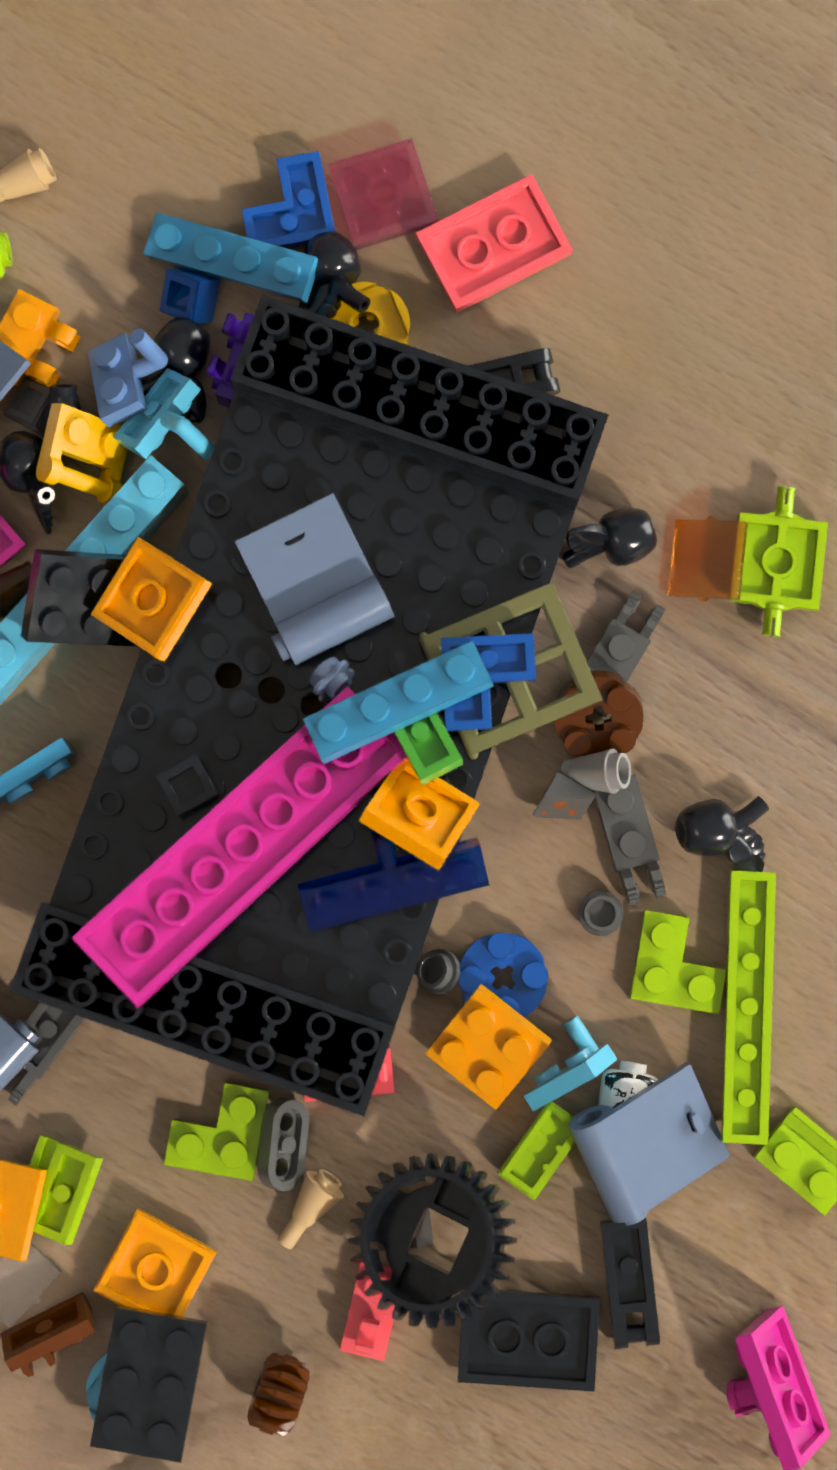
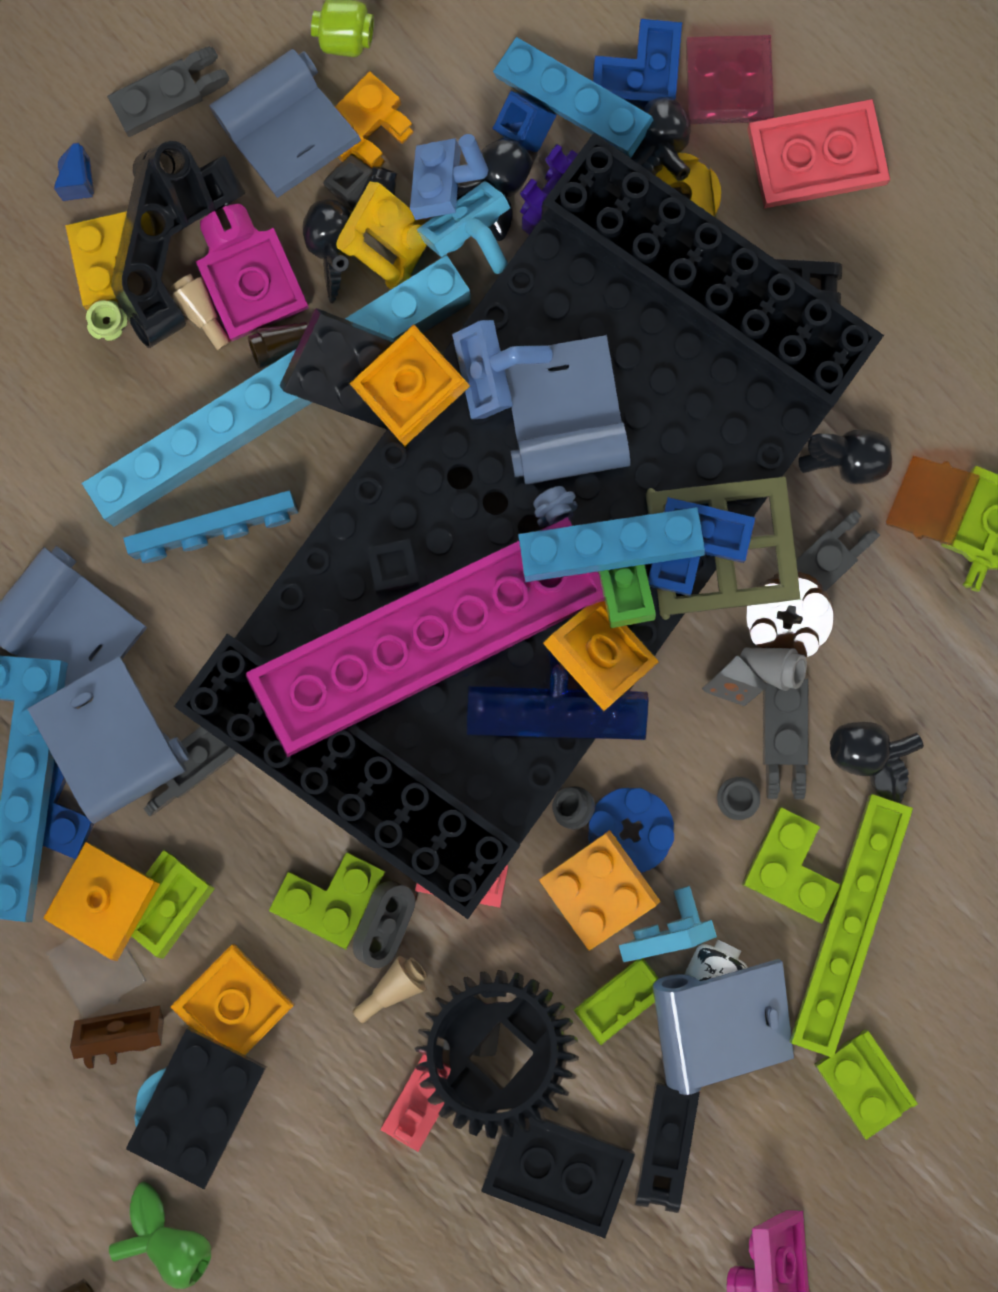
camera: 20 degrees right, 0 degrees up
(221, 558) = (485, 366): none -> medium blue plate
(278, 1394) = (312, 1153): reddish brown gear -> none

